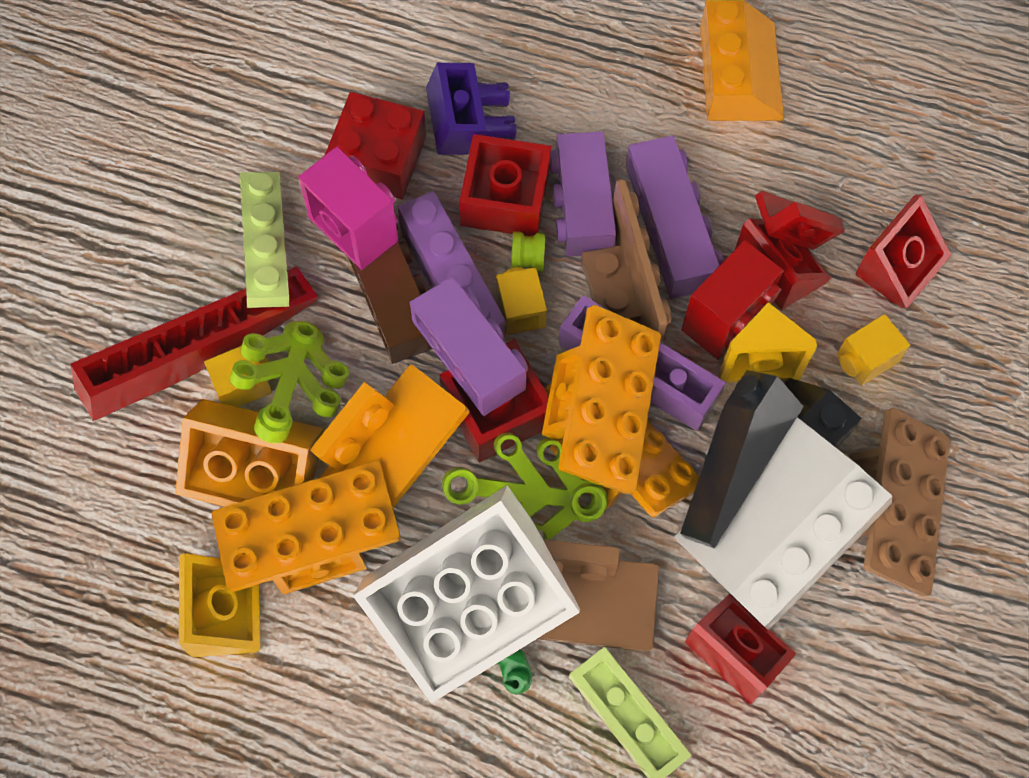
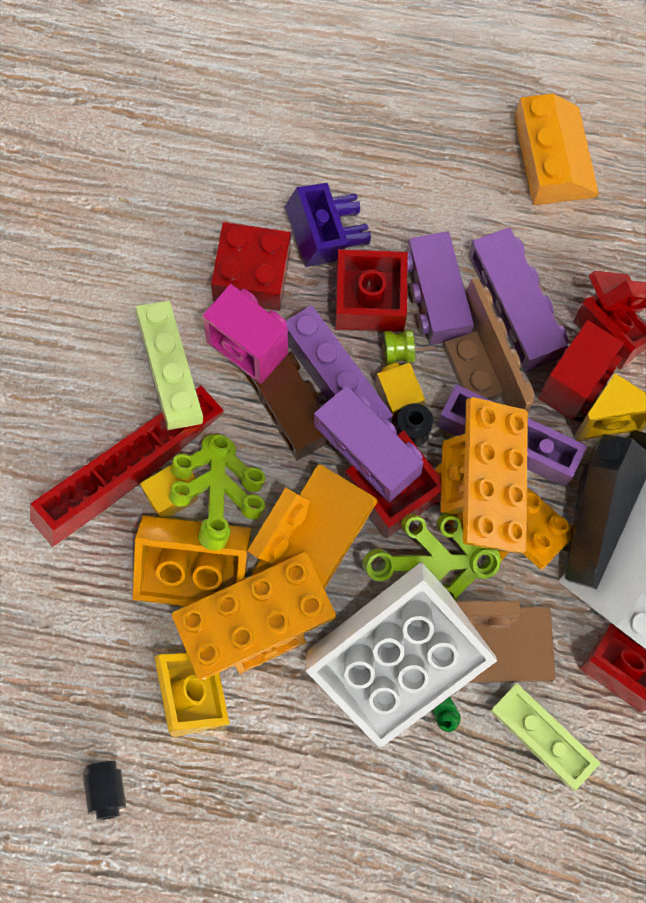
camera: 10 degrees left, 5 degrees up
(97, 705) = (104, 790): none -> black brick
(532, 334) = (418, 415): none -> black brick

